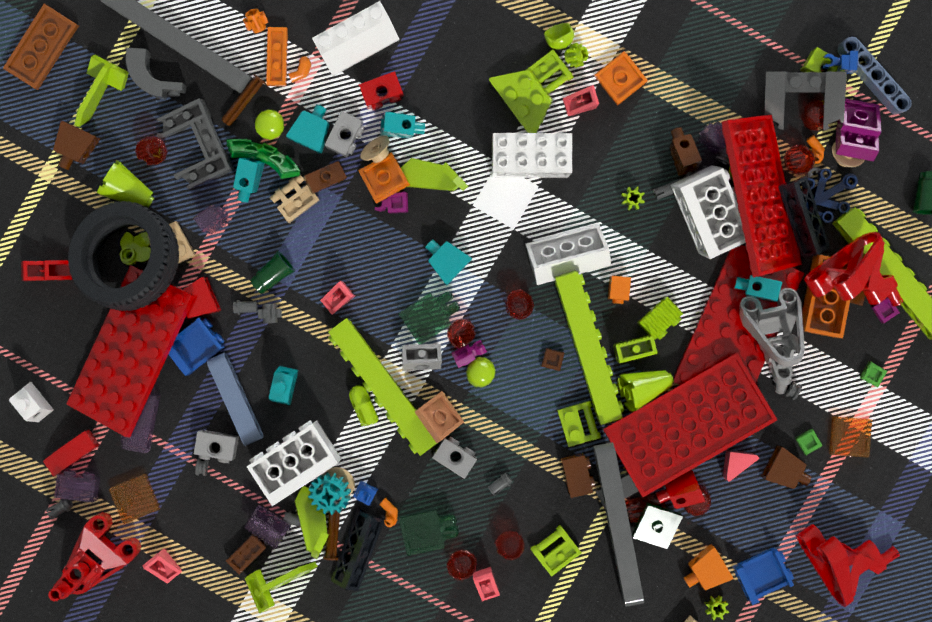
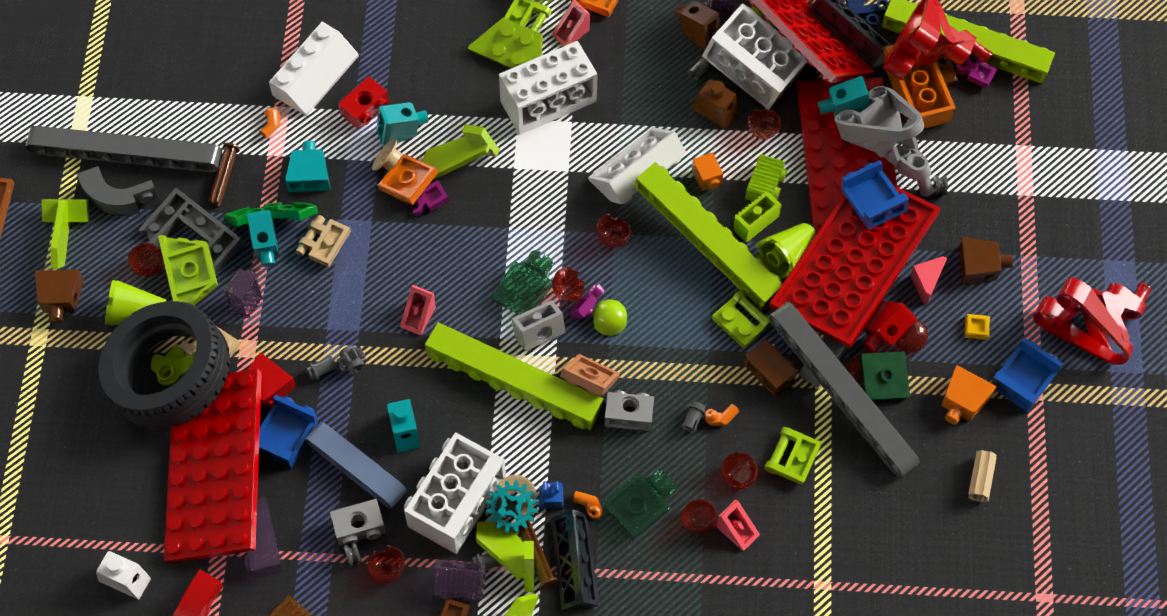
camera: 25 degrees left, 25 degrees down
(45, 270) = (85, 428): red slope -> none
(178, 177) = (188, 268): none -> lime wing
(220, 489) = (386, 565): none -> clear red hair
(255, 20) = (202, 96): orange gear -> none
(269, 124) = (262, 184): lime hair -> none
(272, 273) = (335, 318): dark green plant -> none
(277, 56) = (240, 120): orange plate -> none
(325, 177) = (345, 205): reddish brown plate -> none
(344, 122) = (344, 146): light grey brick -> none
(363, 406) = (501, 406): lime arm -> none
(447, 260) = (516, 225): teal torso -> none
(519, 494) = (721, 419): none -> orange arm
(552, 359) = (678, 271): reddish brown tile -> none
(633, 193) = (672, 86): lime gear -> none
(658, 232) = (716, 103): none -> reddish brown torso
(687, 269) = (764, 124): none -> clear red hair
(717, 612) = (998, 429): lime gear -> none
(732, 384) = (873, 195): none -> blue panel
(751, 517) = (977, 326): none -> yellow tile
(808, 442) = (987, 227): bright green tile -> none
(850, 436) = (1026, 203): clear orange tile -> none
(873, 374) = (1010, 137): bright green tile -> none

